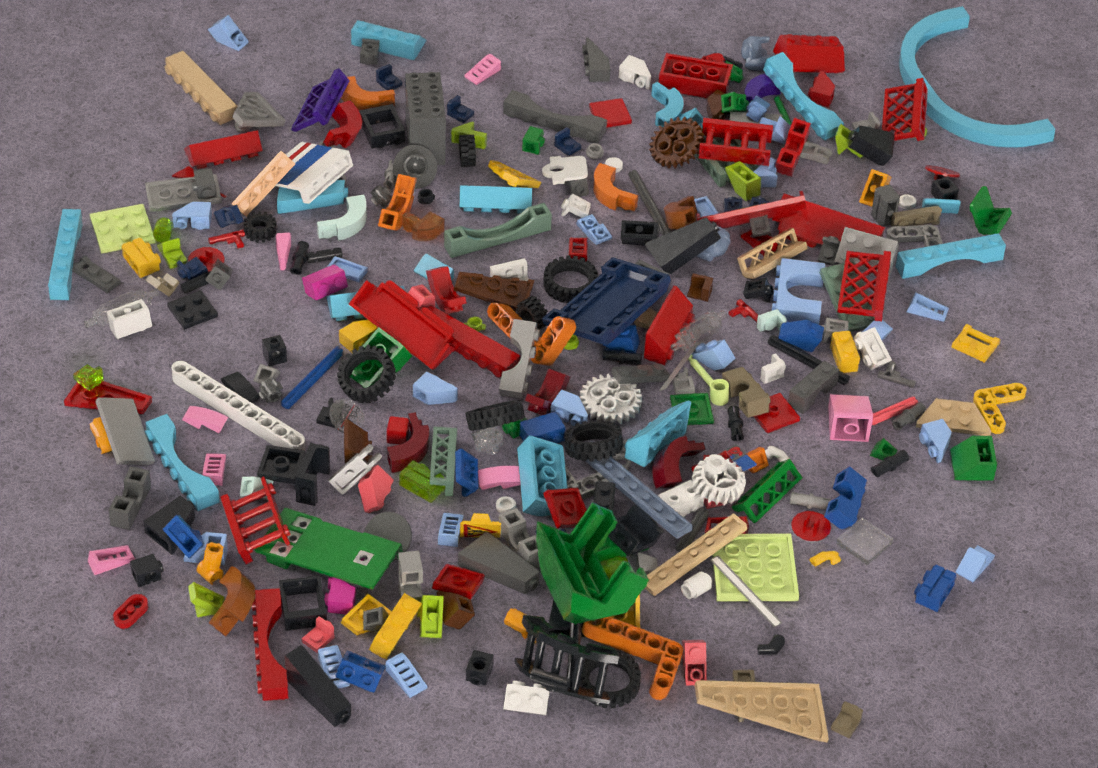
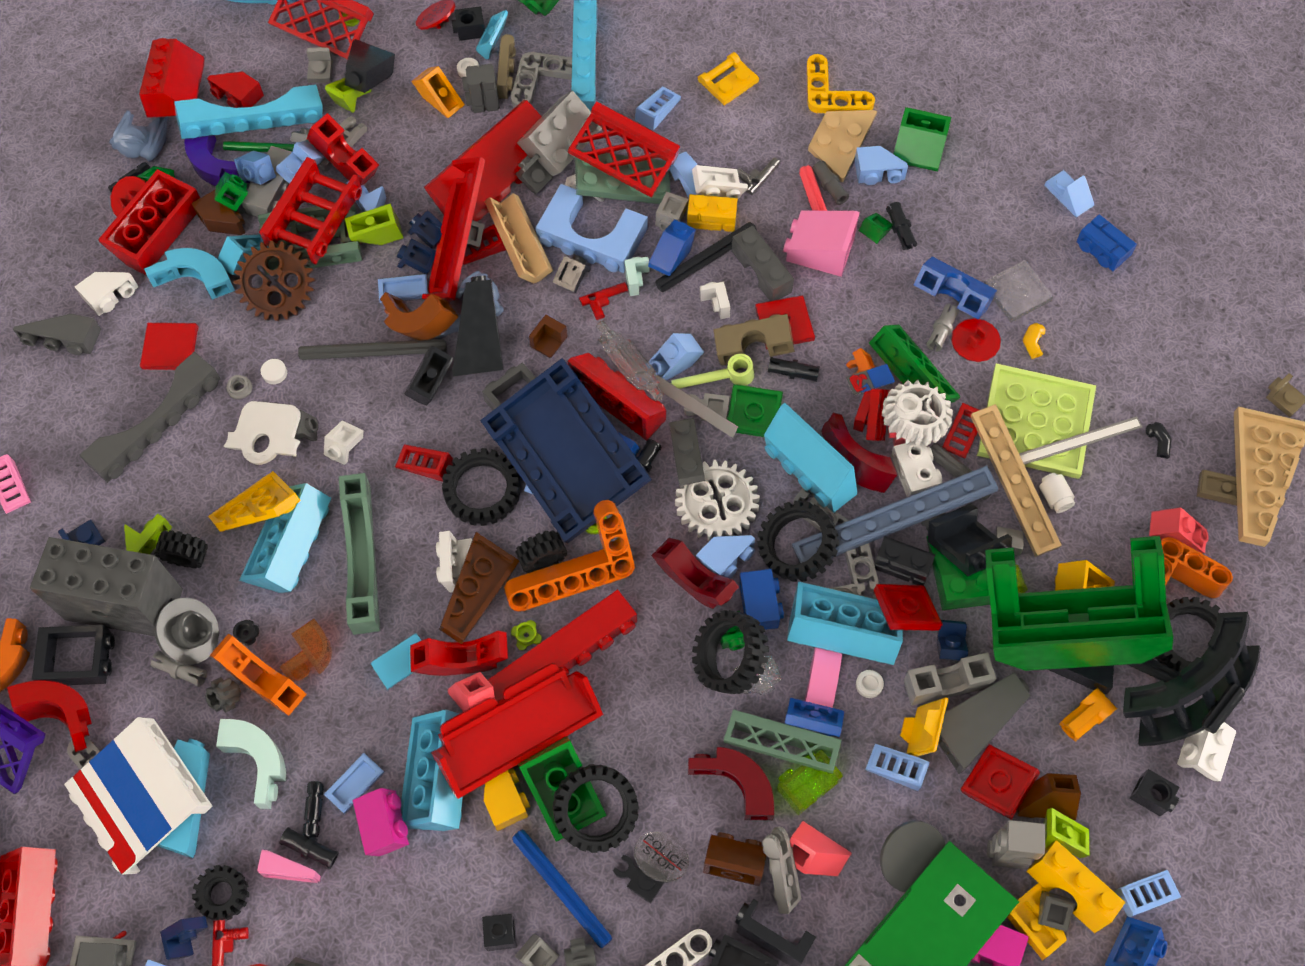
camera: 70 degrees left, 20 degrees up
(263, 183) = (146, 866): light nougat fence -> none
(397, 430) = (707, 791): red piece -> none
(434, 390) = (639, 723): light blue slope -> none
(513, 381) = (658, 609): light grey arch -> none
(533, 140) = (189, 457): green brick -> none
(566, 143) = (209, 417): dark blue bracket -> none
(595, 232) = (395, 431): light blue slope -> none
(608, 193) = (325, 395): orange arch -> none
(779, 454) = (856, 337): white arm -> none

